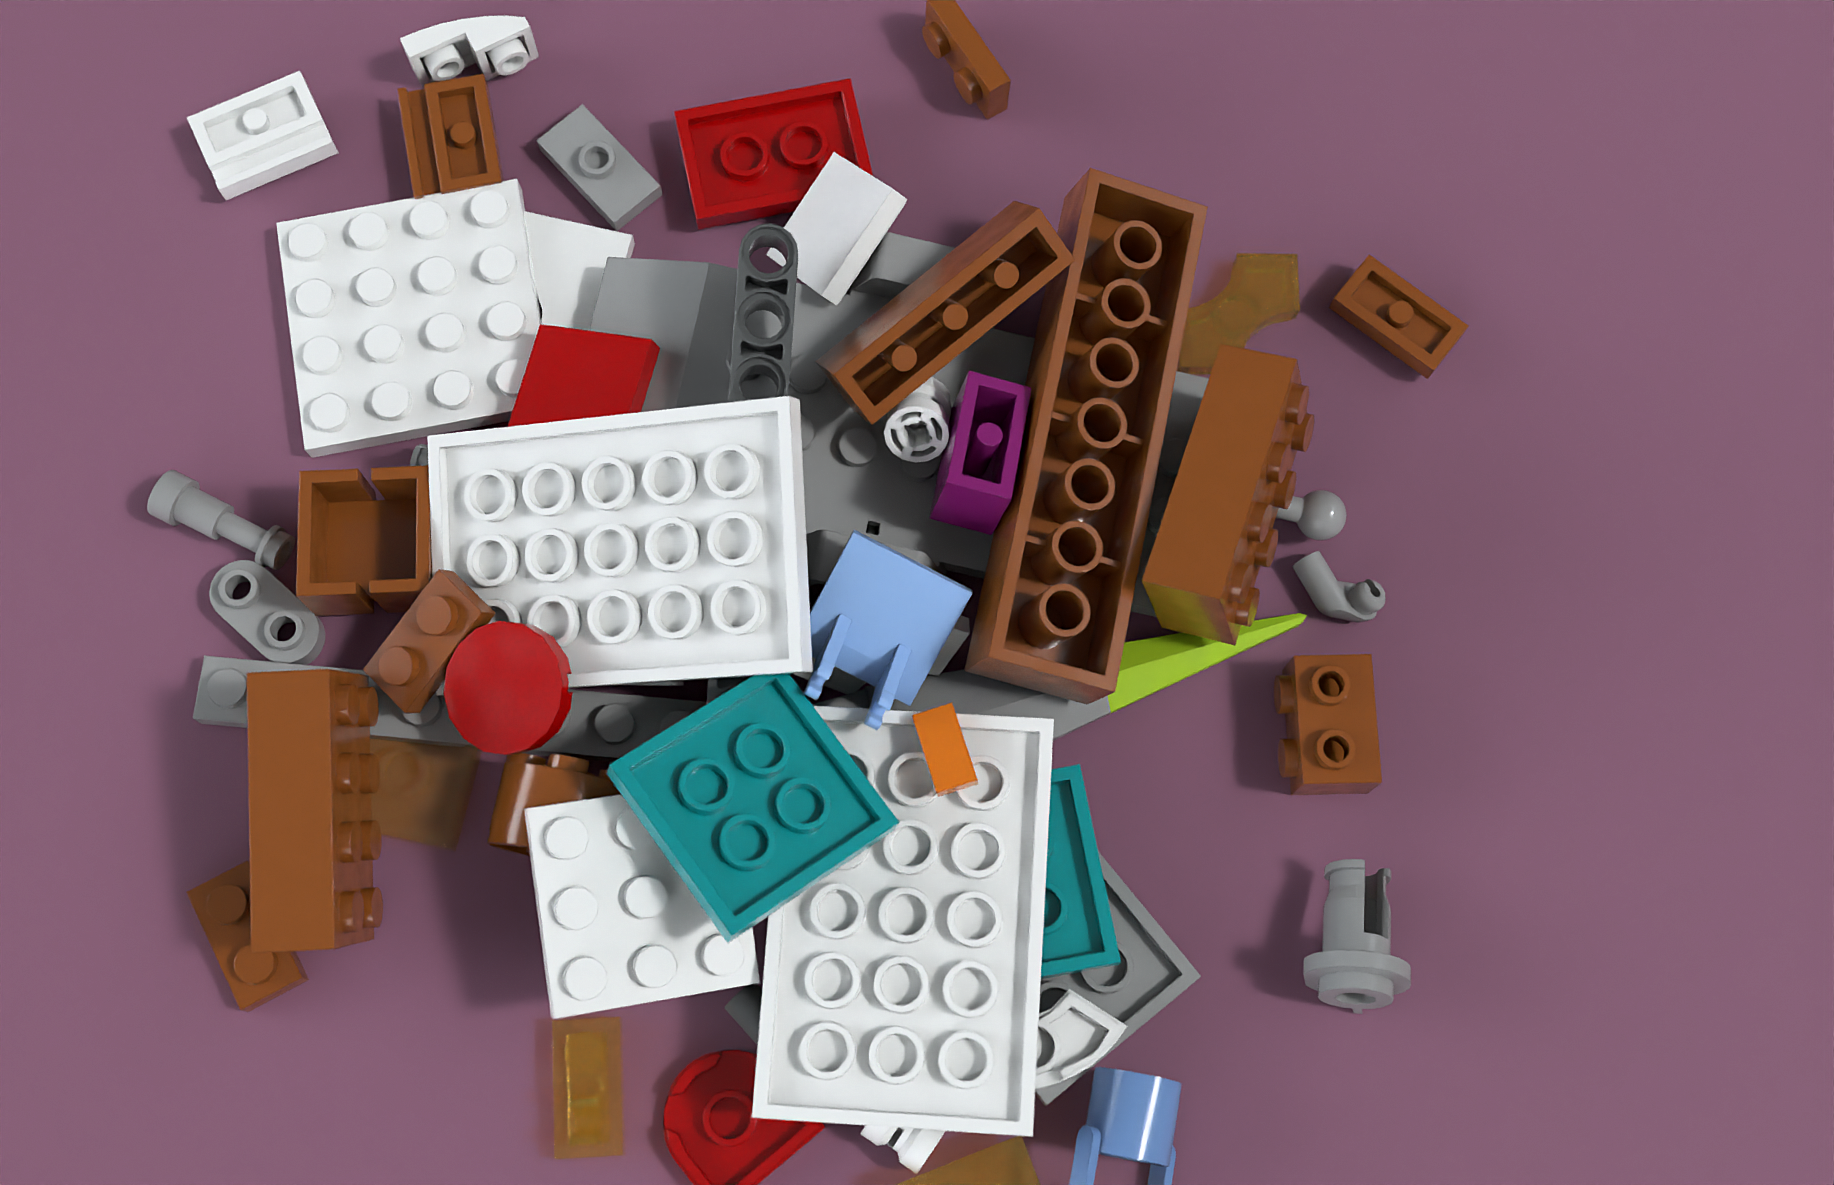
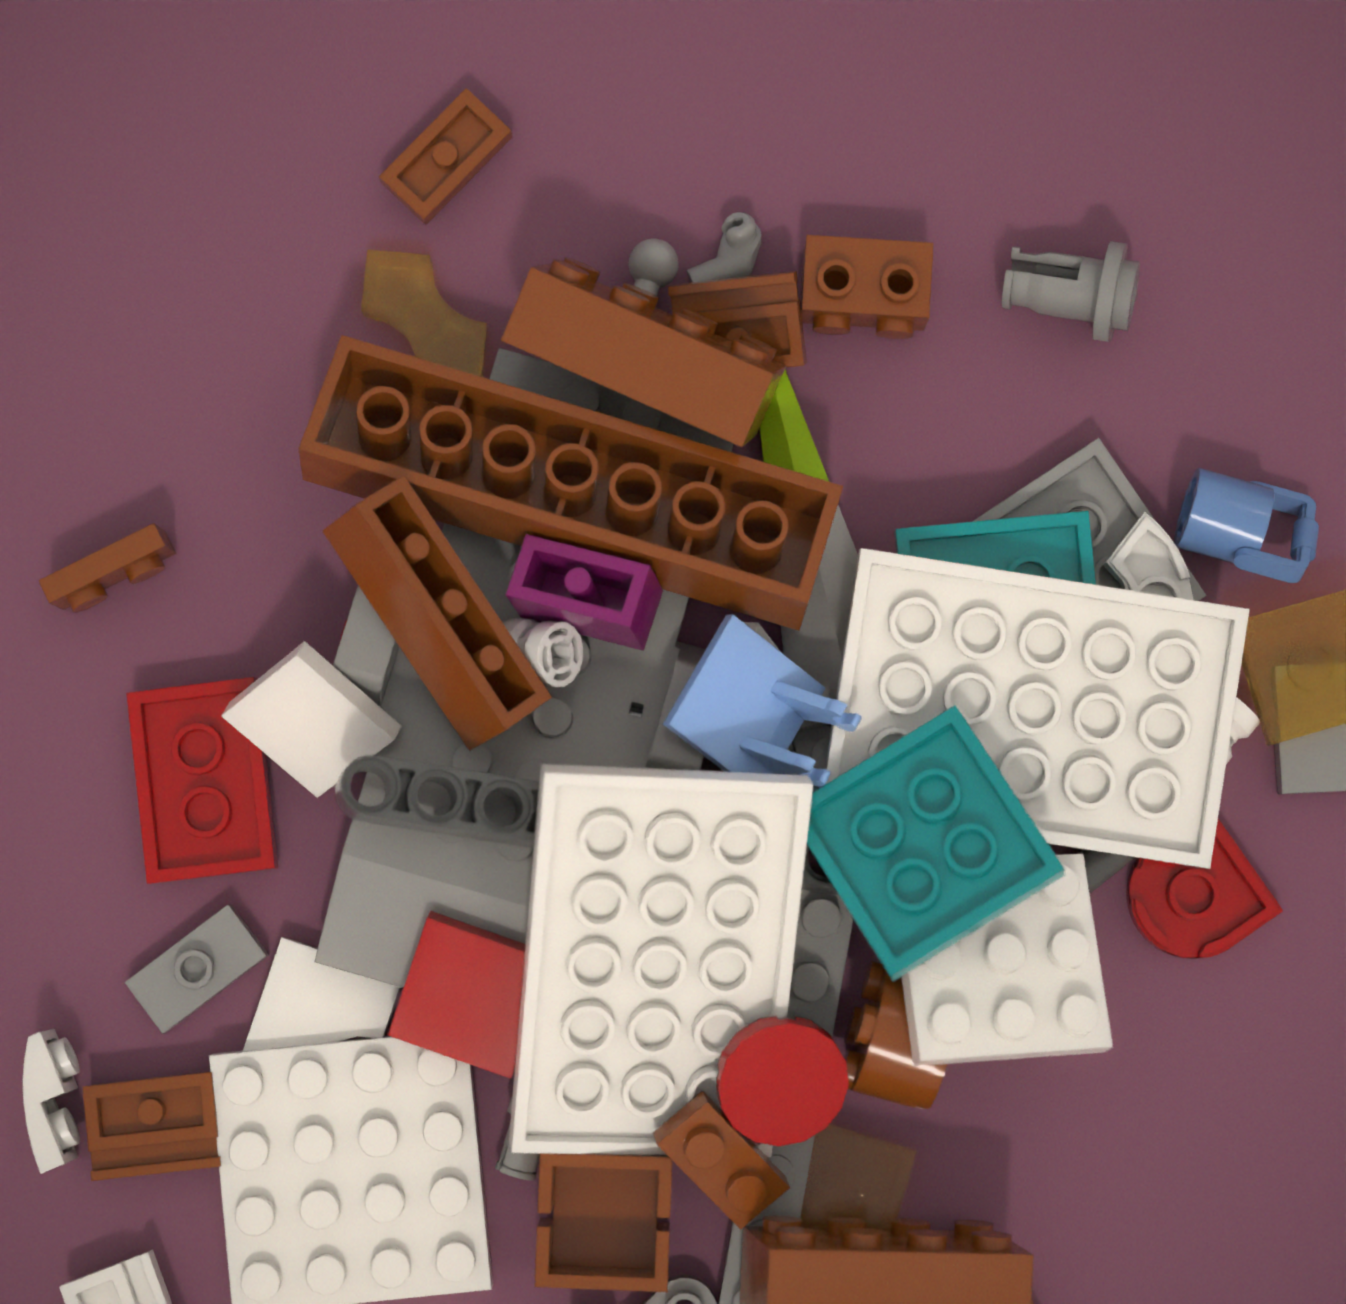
camera: 80 degrees left, 10 degrees up
(588, 1088) = (1163, 1028): clear yellow plate -> none
(945, 749) = (883, 655): orange piece -> none
(1288, 608) = (750, 306): none -> dark orange plate

